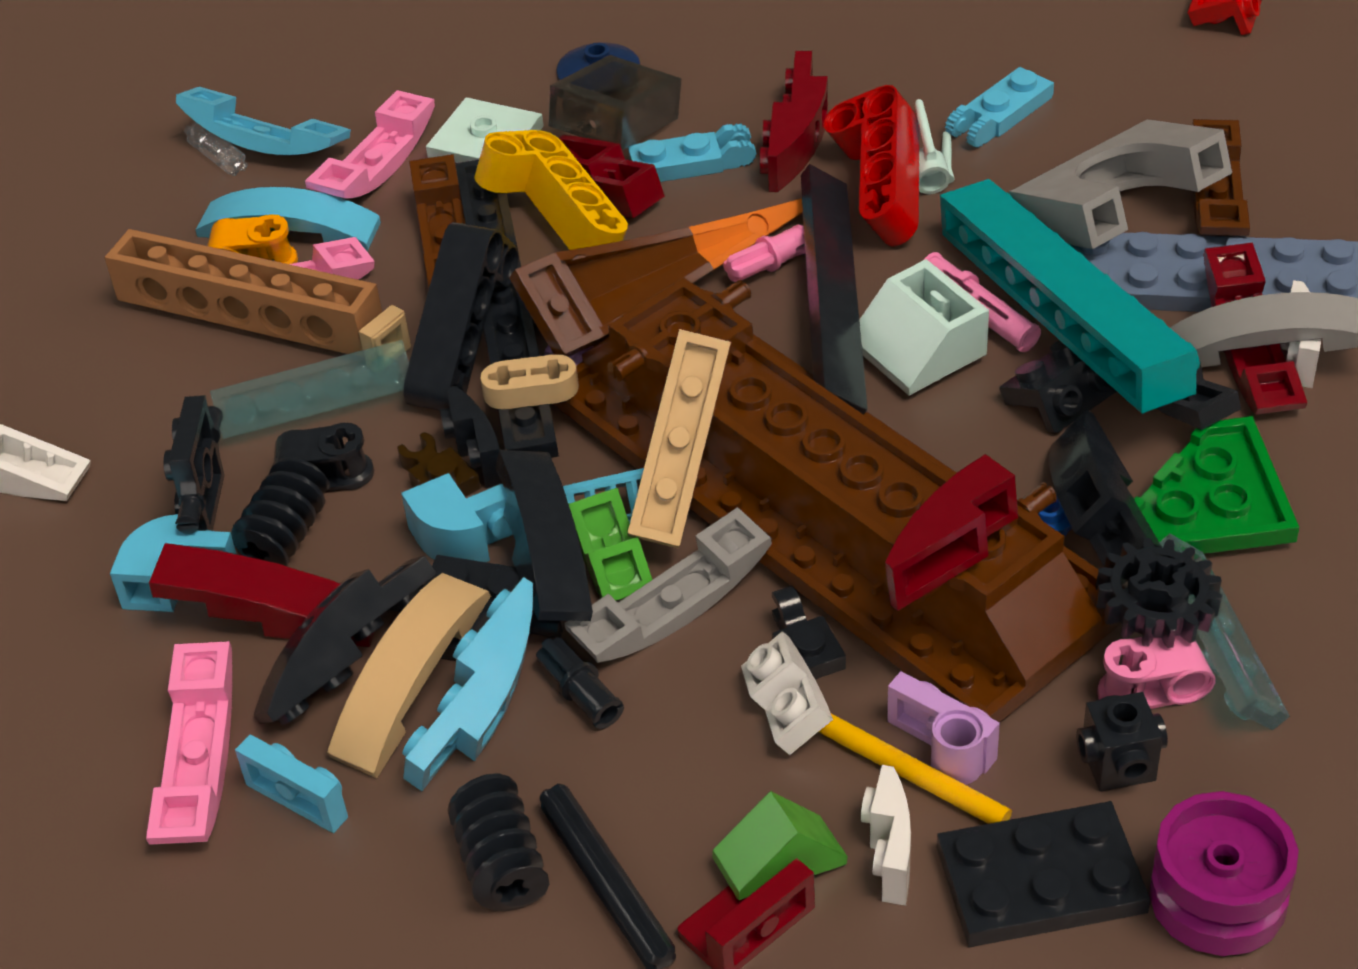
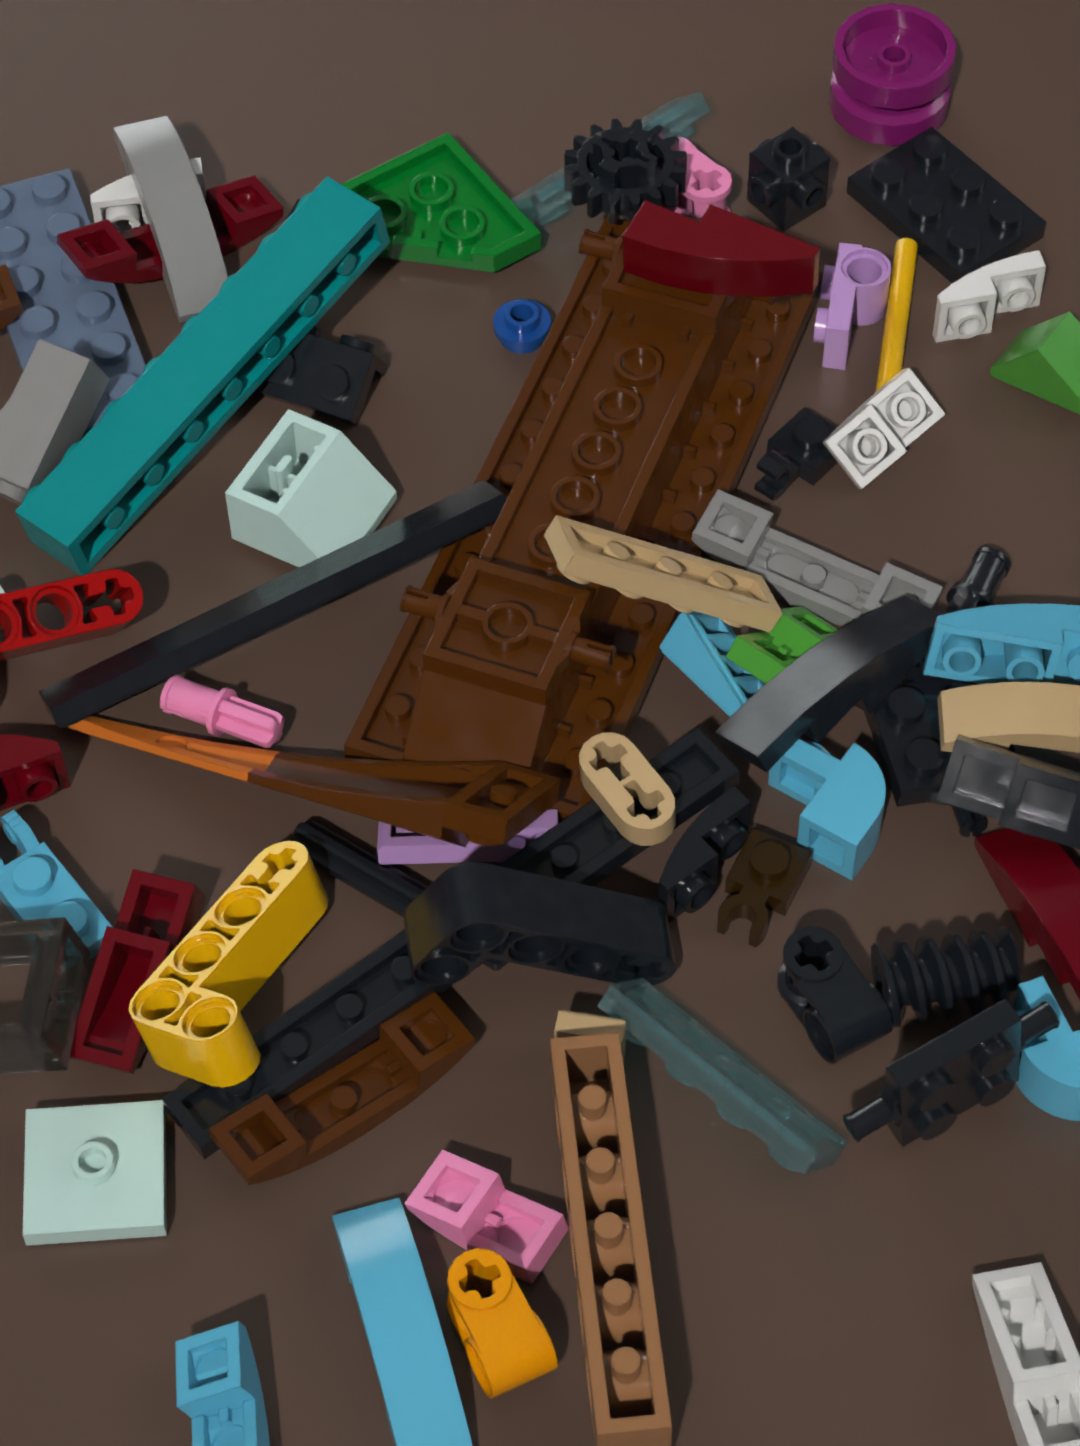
camera: 120 degrees left, 10 degrees up
(381, 153) = (206, 1292): bright pink slope -> none
(1002, 317) = (182, 528): bright pink pin -> none
(1094, 489) = (484, 279): black slope -> none

